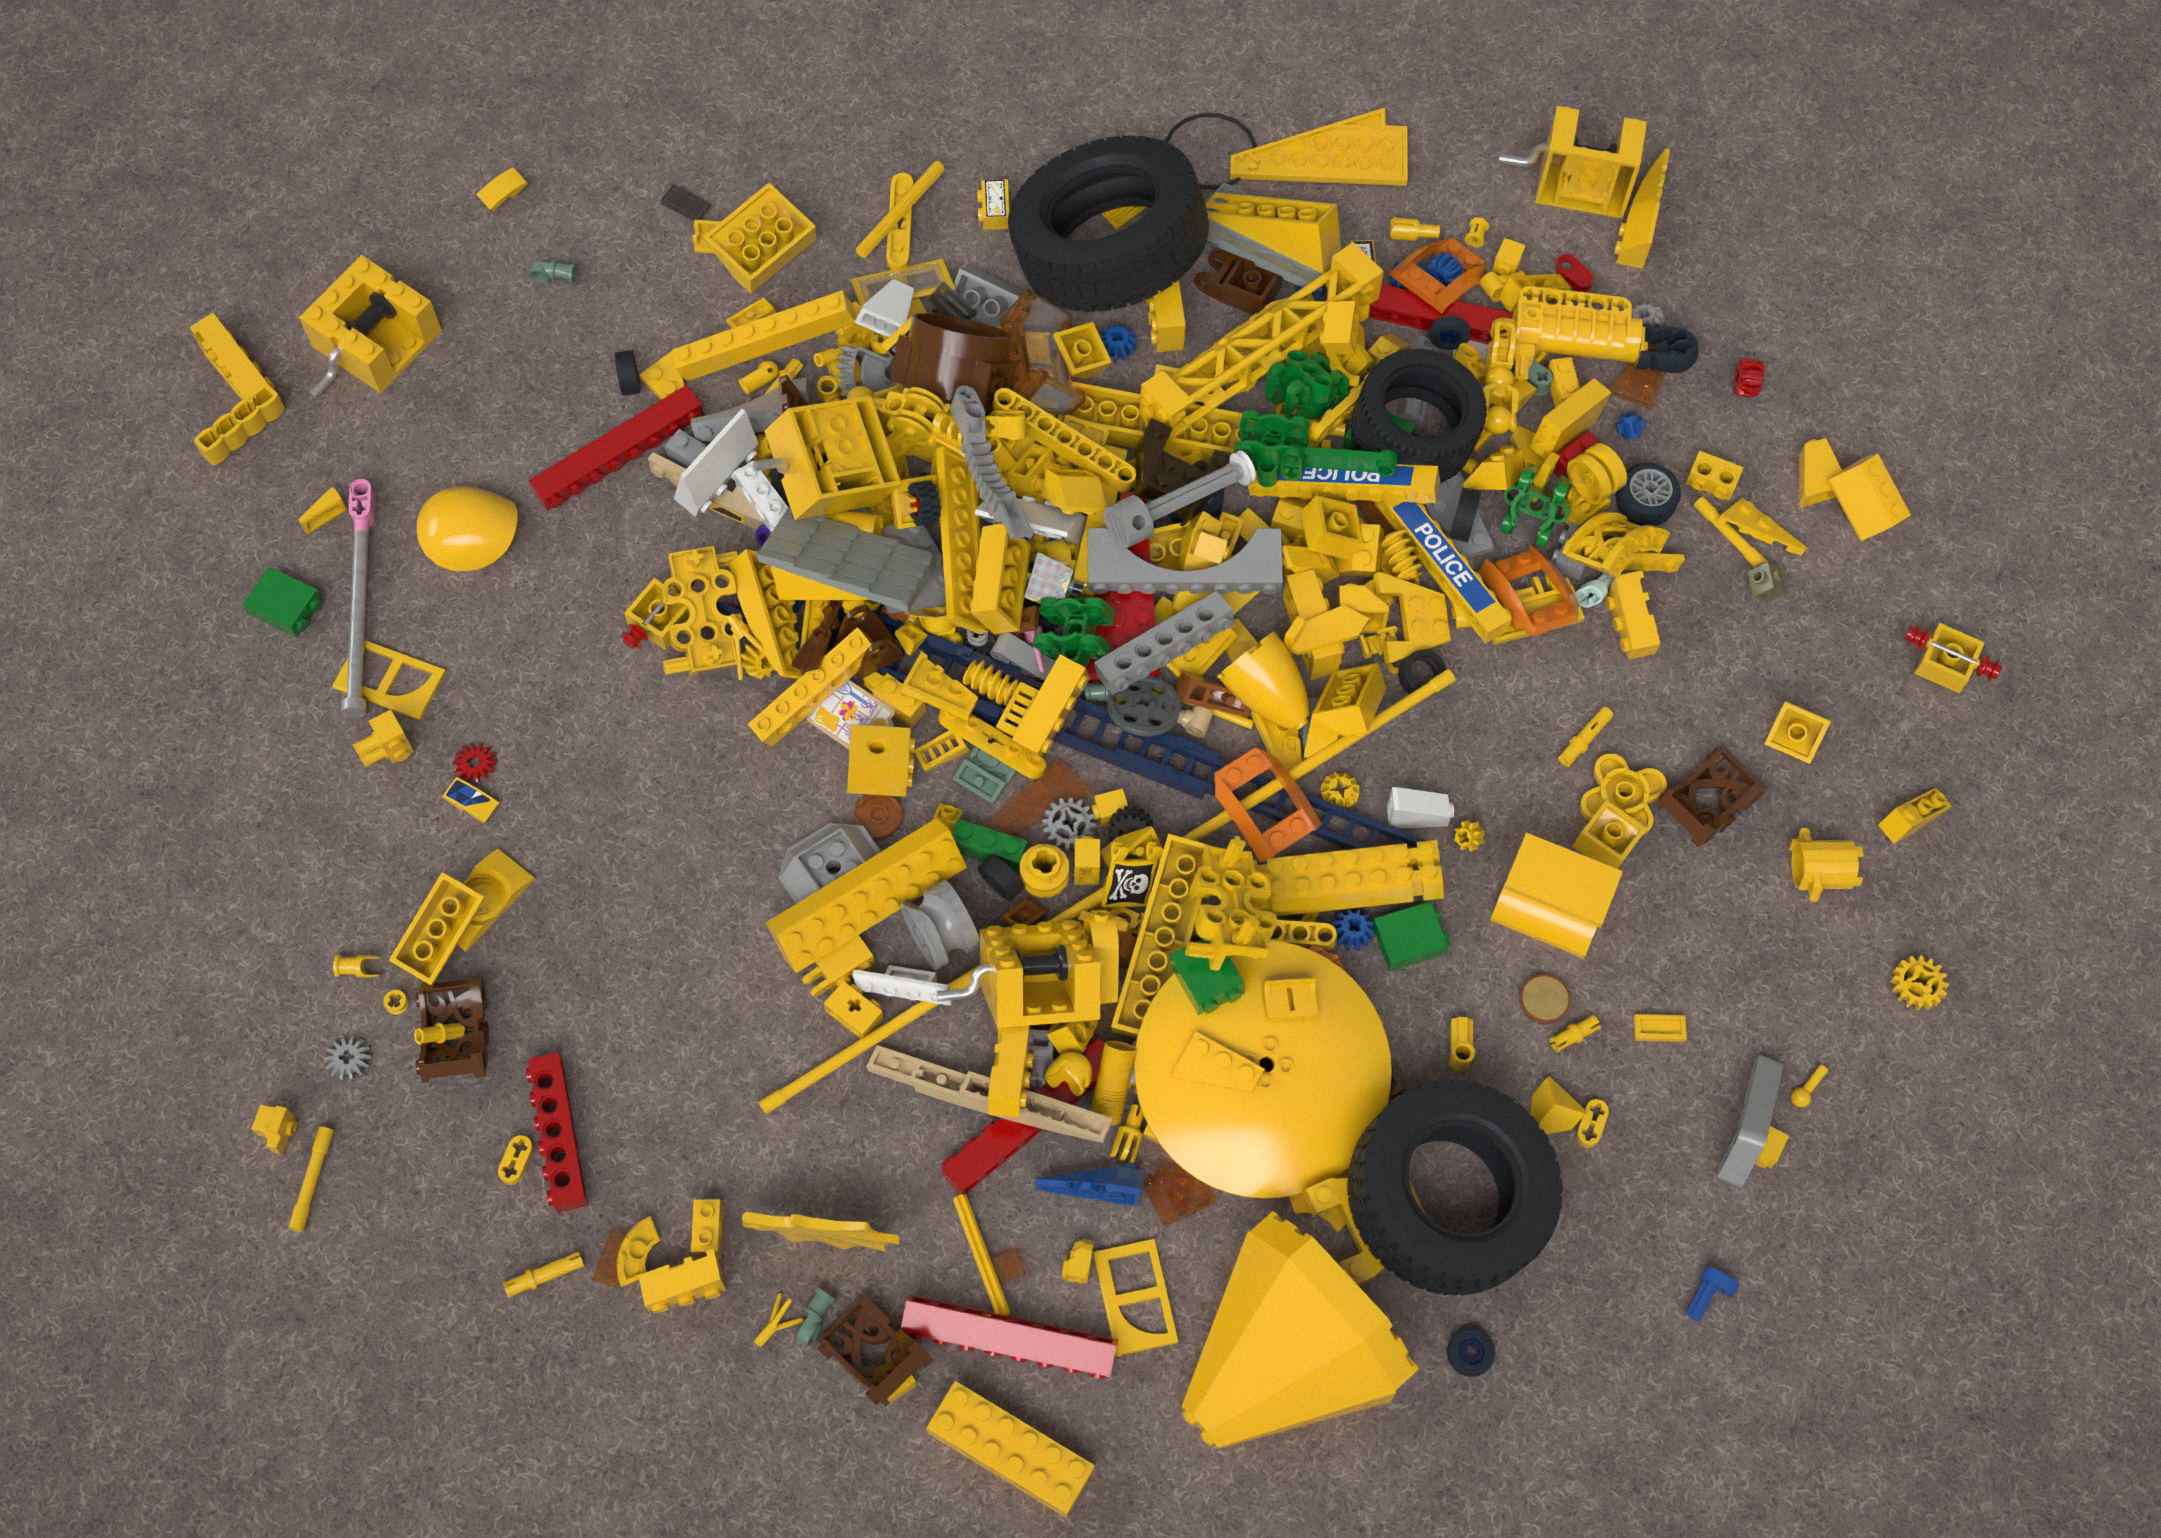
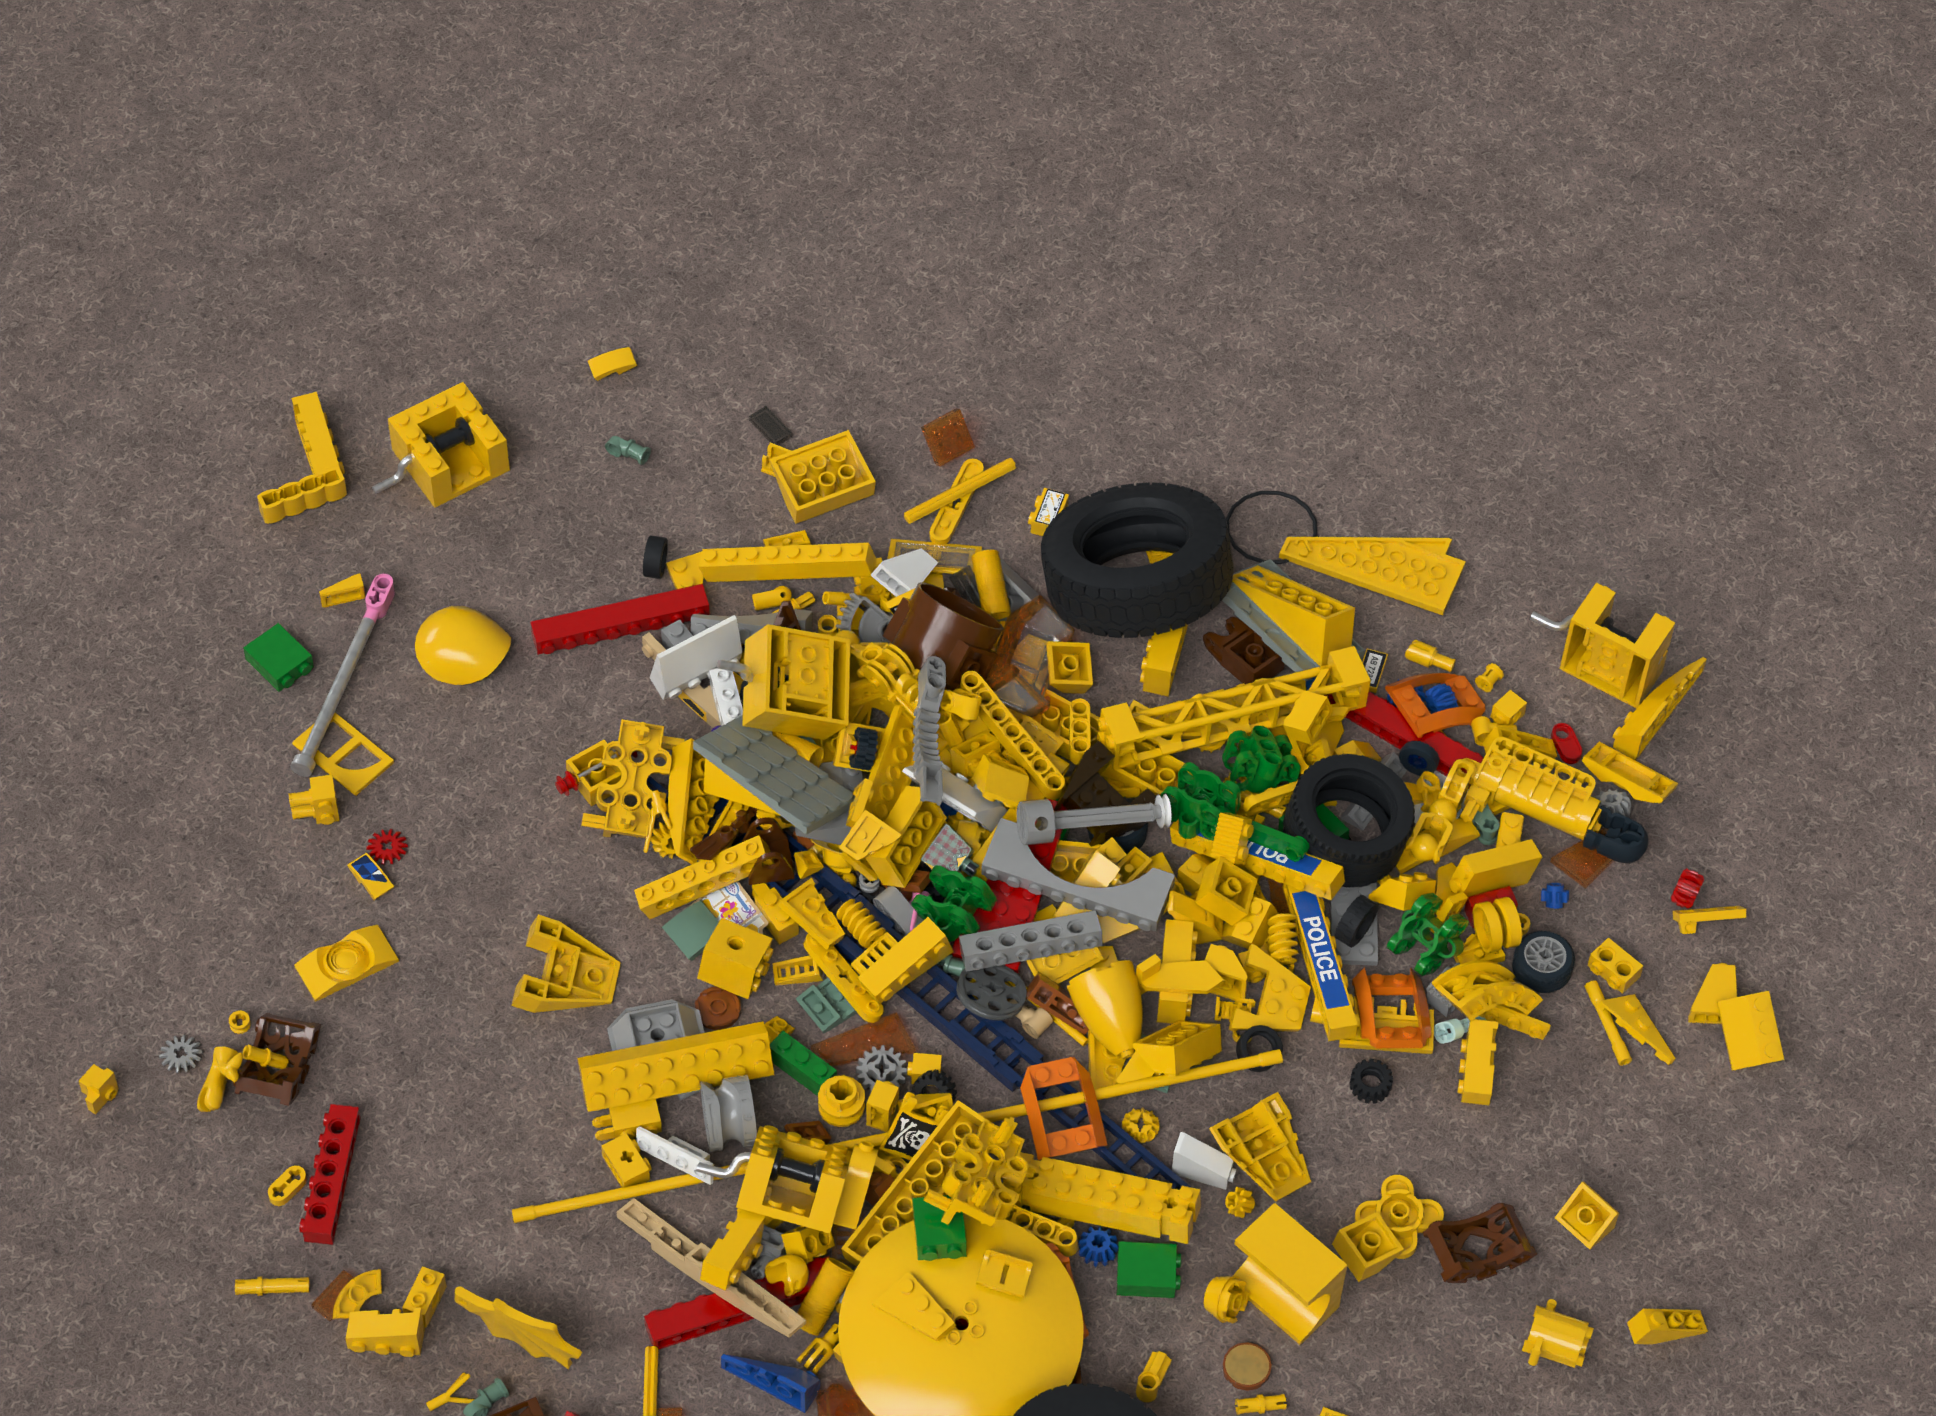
camera: 20 degrees right, 10 degrees down
(302, 1207) = (127, 1120): yellow piece -> none
(352, 966) = (215, 979): yellow piece -> none
(399, 1059) = (224, 1067): none -> yellow piece
(437, 928) = (297, 969): yellow slope -> none
(718, 830) = (573, 974): none -> yellow wedge
(822, 743) = (692, 929): none -> sand green slope
(866, 159) = (947, 437): none -> clear orange plate
(945, 567) = (863, 794): none -> yellow wing
(970, 593) = (868, 837): none -> yellow wing
(973, 292) = (991, 580): none -> yellow piece
(1001, 877) = (801, 1094): black tyre -> none
(1118, 341) = (1108, 670): blue gear -> none
(1122, 404) = (1081, 723): none -> yellow beam
(1319, 472) = (1232, 838): none -> yellow brick
(1469, 771) = (1265, 1146): none -> yellow wedge
(1499, 938) = (1225, 1298): none -> yellow cone
(1538, 681) = (1371, 1093): none -> black tyre
(1579, 743) = (1380, 1158): yellow pin -> none
(1648, 284) = (1628, 774): none -> yellow slope
(1761, 405) = (1688, 918): none -> yellow hinge
(1766, 582) = (1619, 1075): olive brick -> none
(1950, 657) = (1762, 1197): yellow brick -> none

